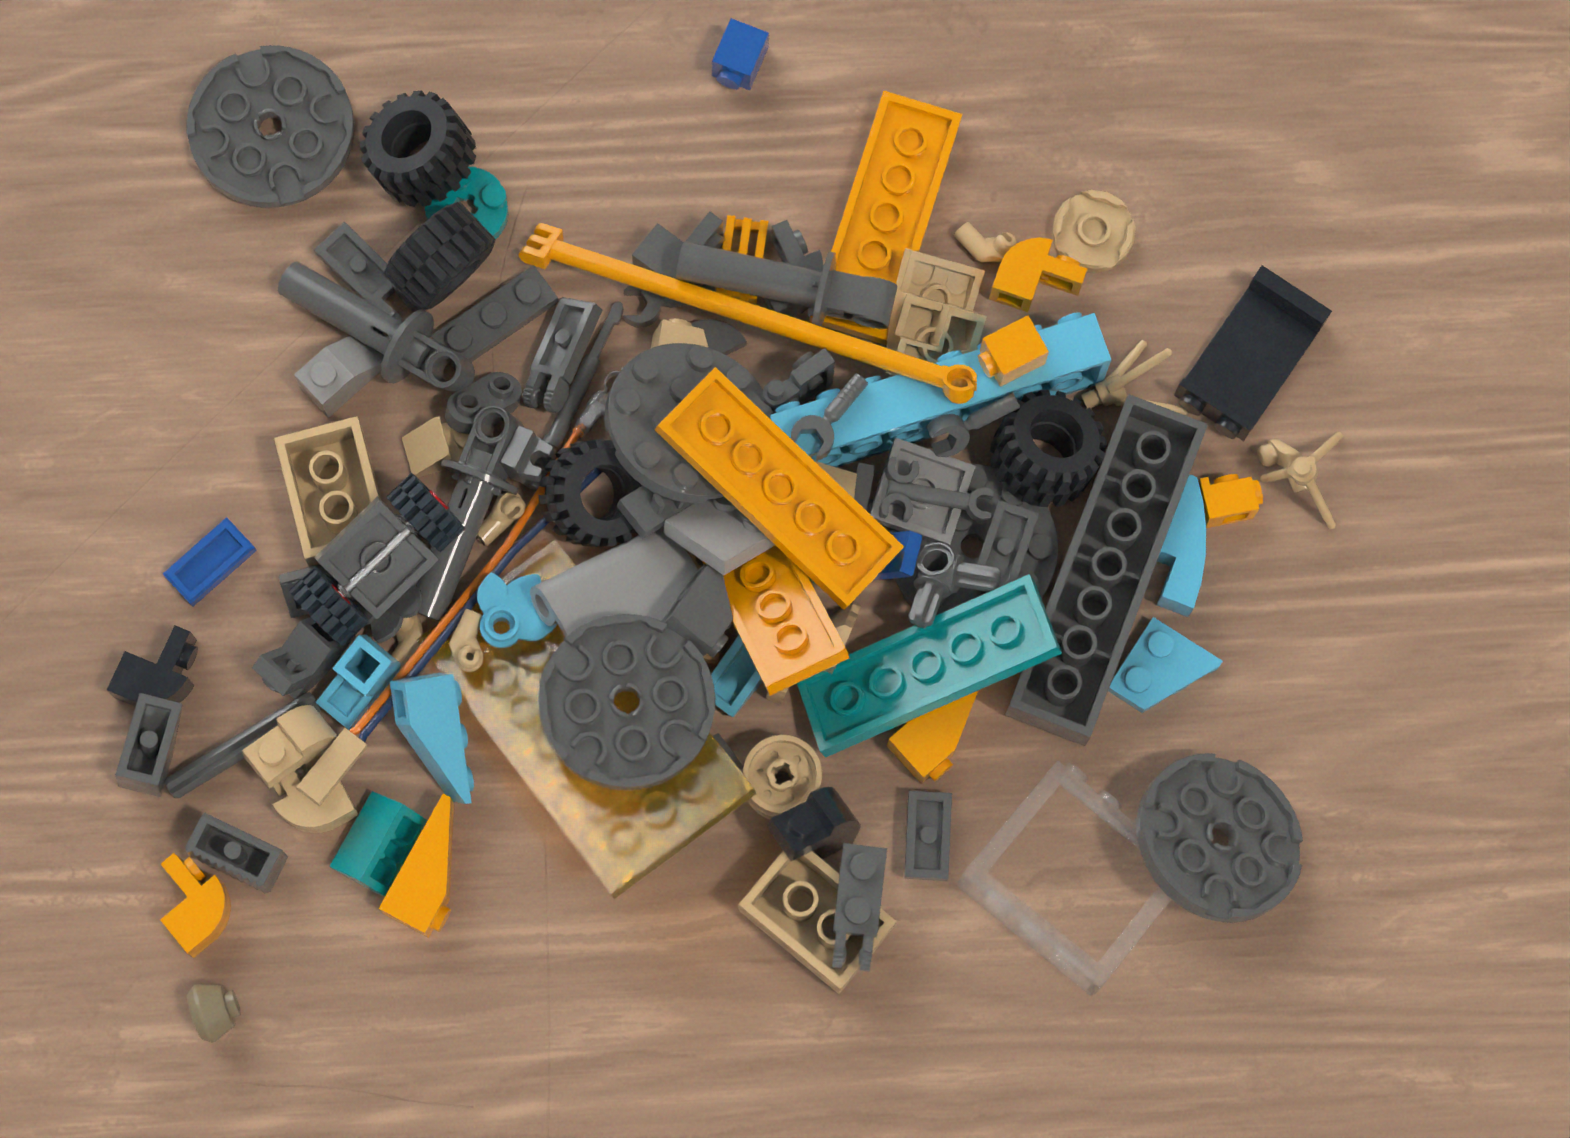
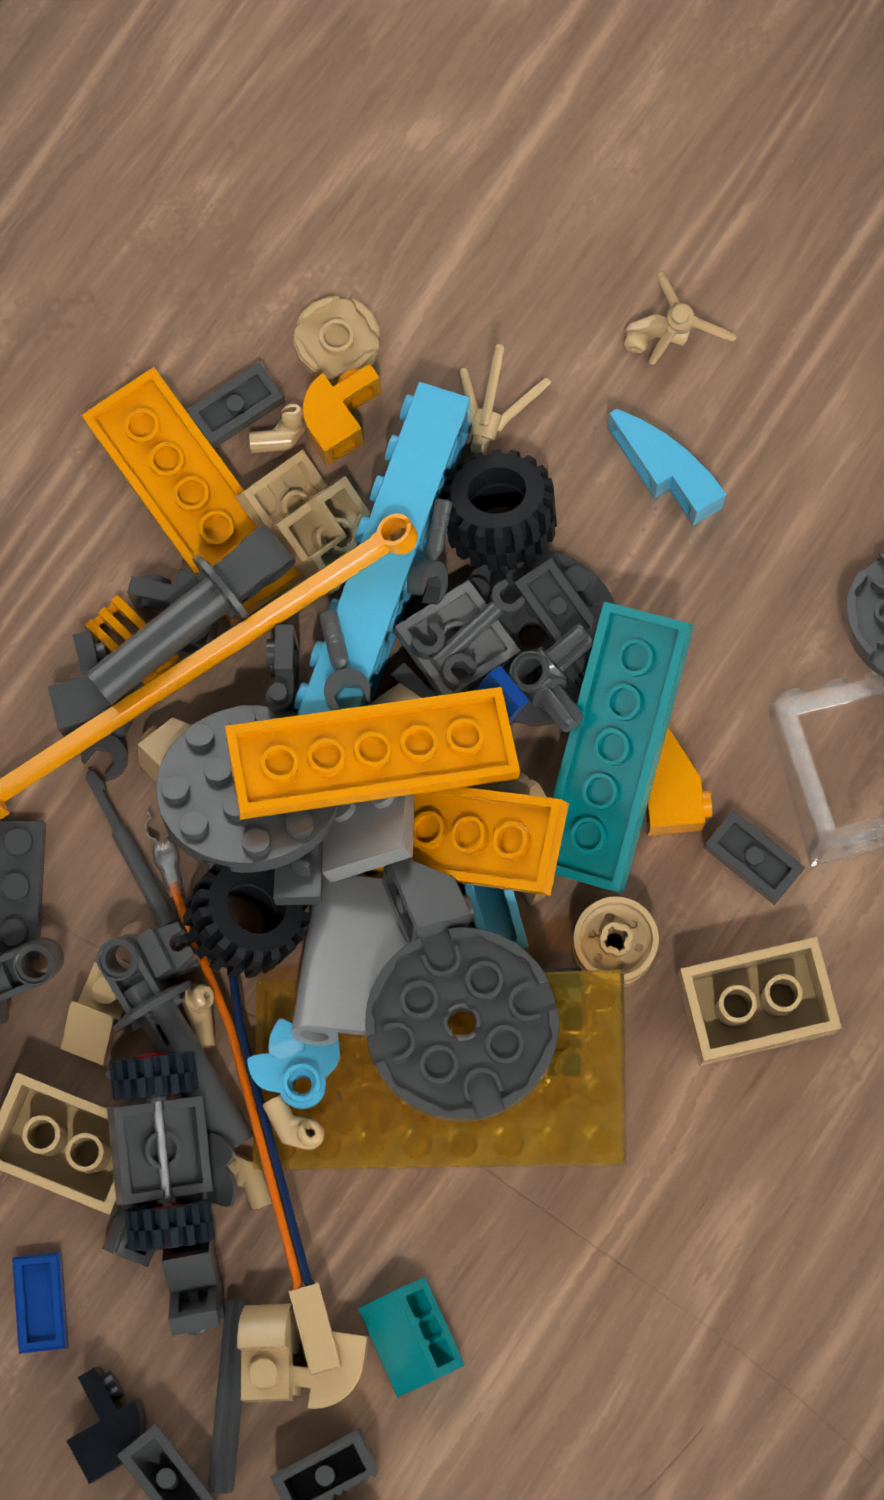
camera: 45 degrees left, 0 degrees up
(360, 680) = (253, 1249): medium azure brick -> none
(423, 883) = (475, 1322): light orange slope -> none
(431, 723) = (342, 1211): medium azure slope -> none
(480, 395) = (81, 951): dark grey plate -> none
(560, 353) = (95, 854): dark grey hinge -> none
(721, 335) = (187, 707): dark grey tile -> none
(815, 825) = (681, 944): black brick -> none
(858, 900) = (779, 956): dark grey hinge -> none
(980, 196) = (236, 405): none -> dark grey plate
(1012, 351) = (404, 469): light orange brick -> none
(1109, 567) = (638, 534): dark grey brick -> none
(1160, 667) = (749, 561): medium azure wing -> none
(1230, 499) = (653, 395): light orange brick -> none
(1252, 354) = (541, 290): black panel -> none

